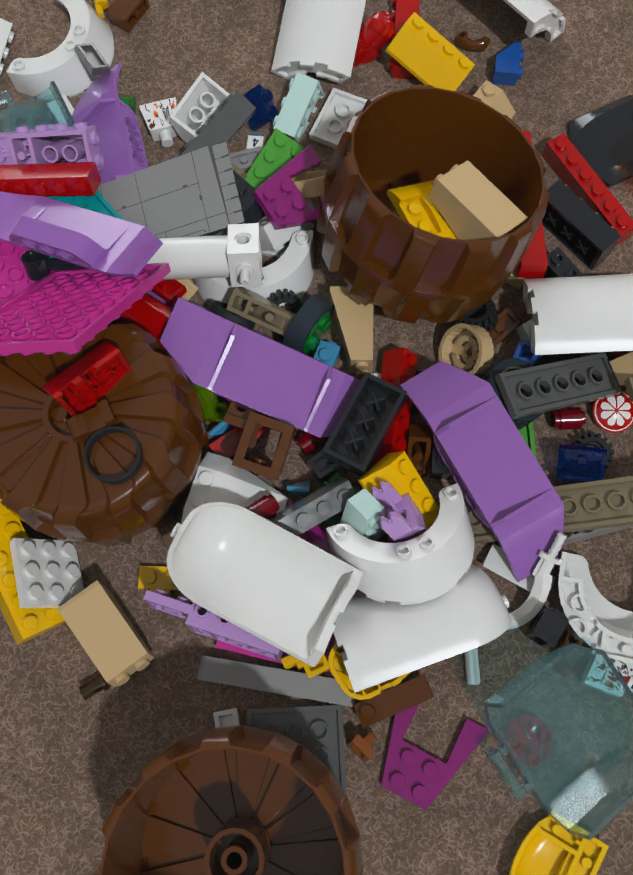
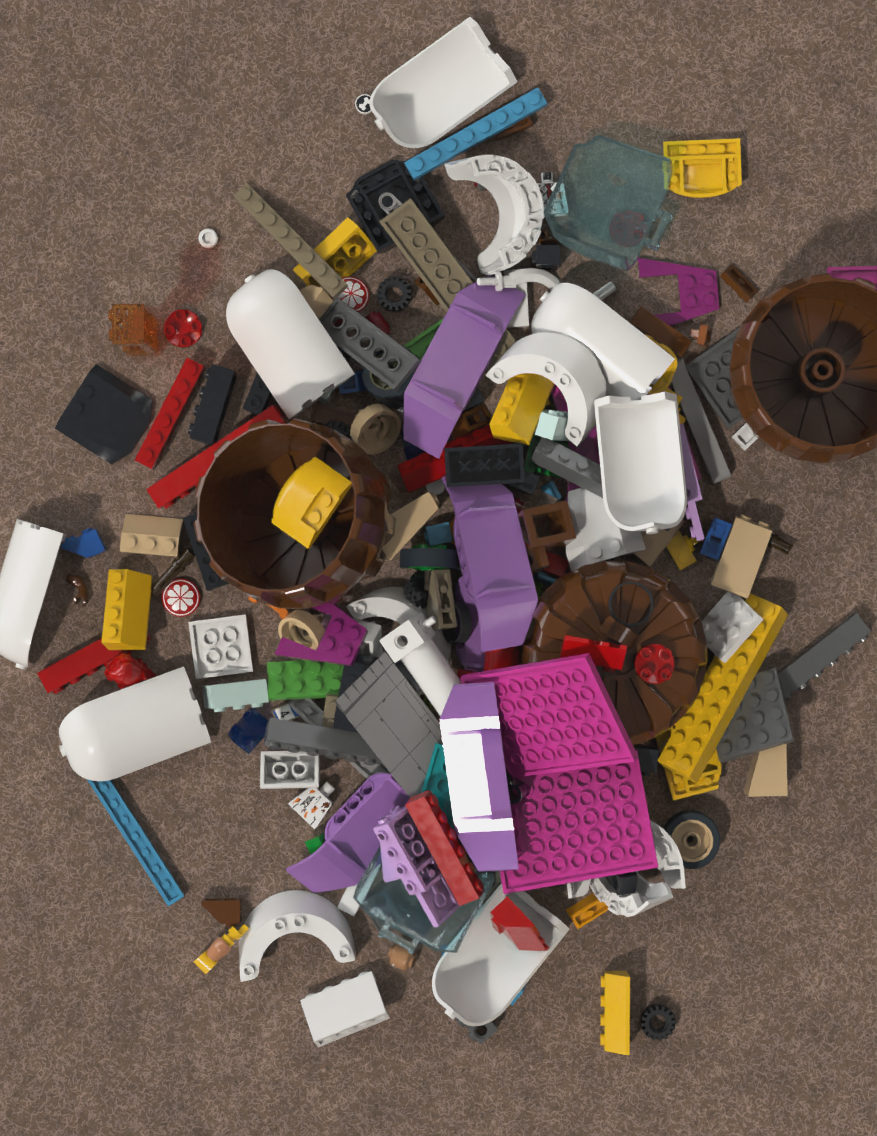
camera: 125 degrees left, 15 degrees up
(33, 441) = (654, 663): none -> red dish
(92, 59) = (300, 893): flat silver tile -> none
(143, 619) = (715, 539): none -> blue brick
(264, 506) = (591, 500): dark red brick -> none
(395, 828) = (739, 283): none -> reddish brown plate
(403, 516) = (534, 398): lavender piece -> none
(474, 205) = (293, 470): tan slope -> none
(581, 463) = (413, 296): clear blue bracket -> none

